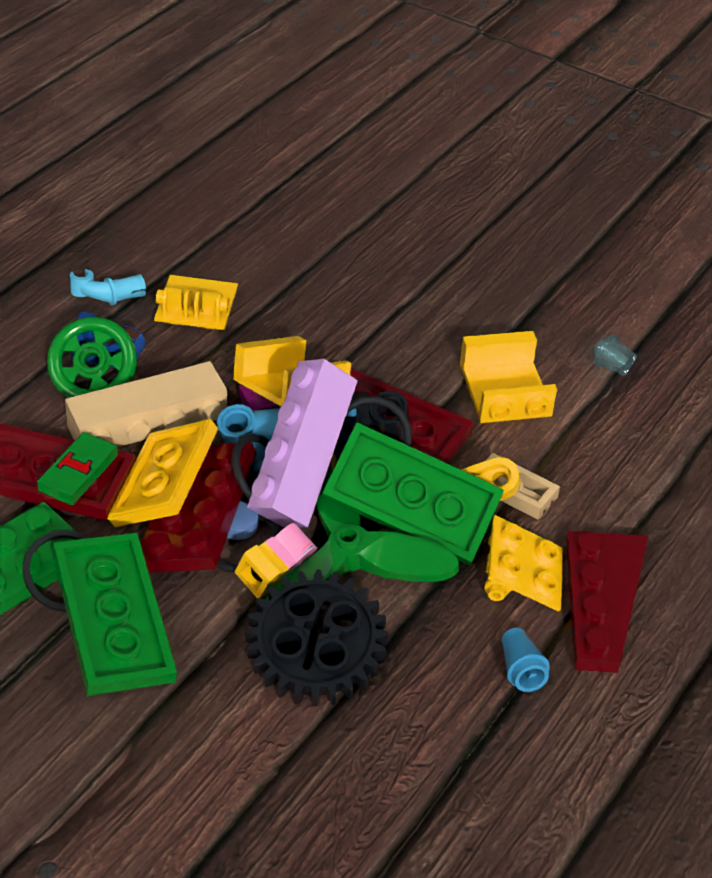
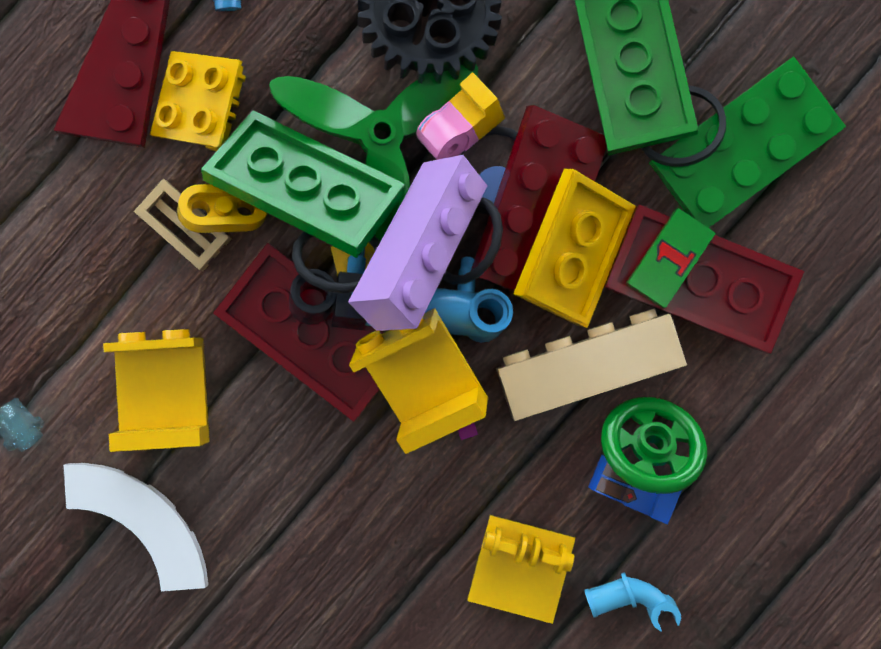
camera: 165 degrees left, 45 degrees up
(494, 317) = (146, 514): none -> white tile

